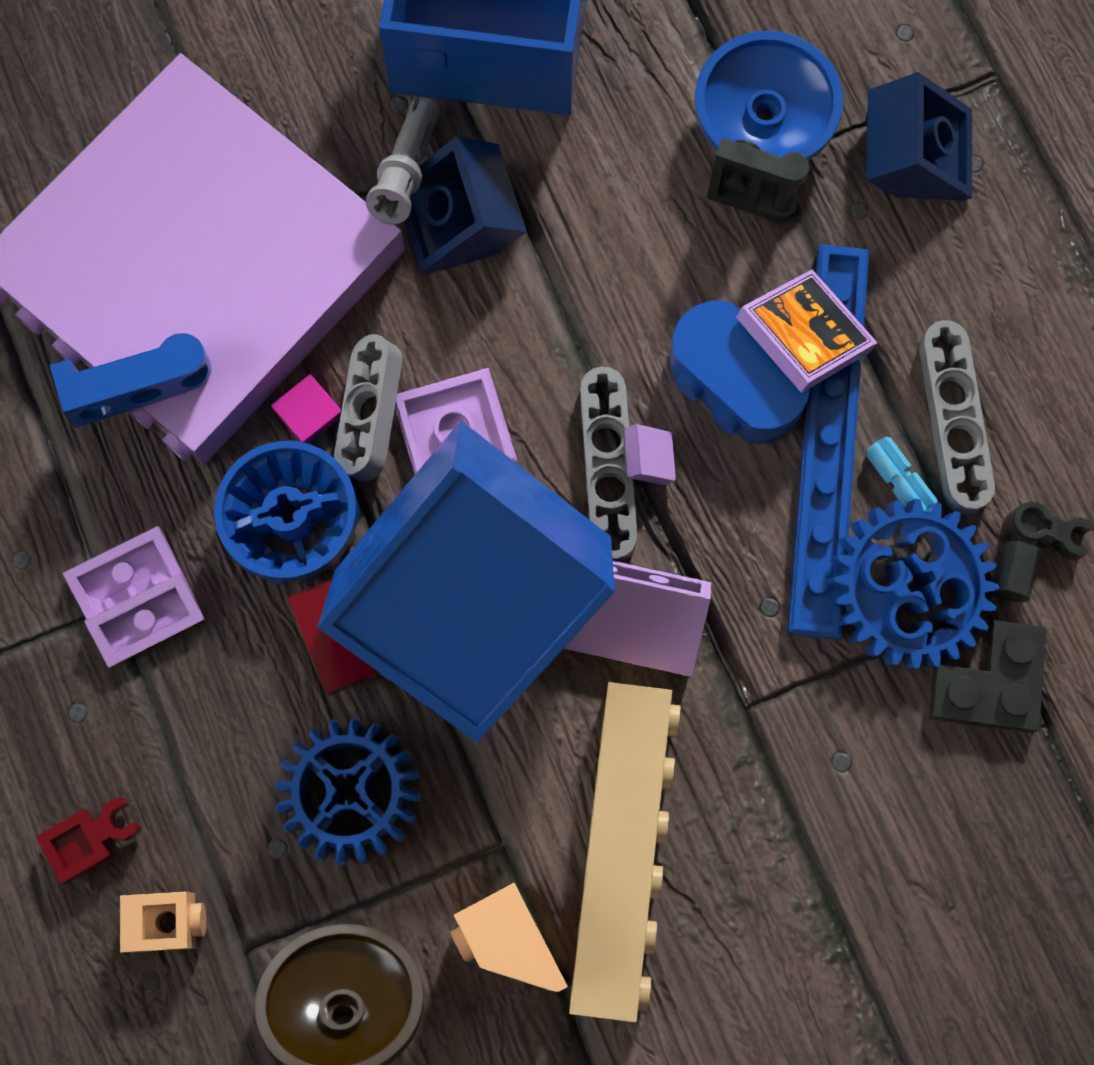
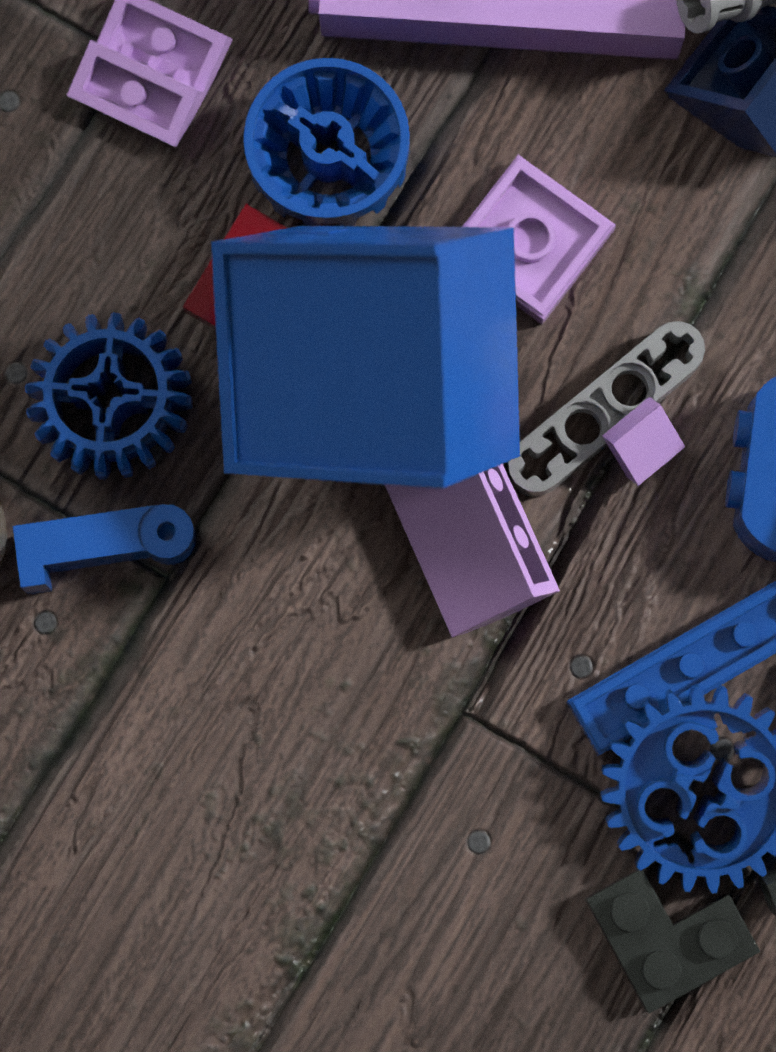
camera: 60 degrees right, 5 degrees up
(307, 410) = (444, 88): dark pink tile -> none
(360, 387) = (519, 110): light grey beam -> none
(471, 827) = (101, 539): none -> blue leg
(506, 940) = (72, 641): light nougat slope -> none
(621, 853) = (235, 688): tan brick -> none

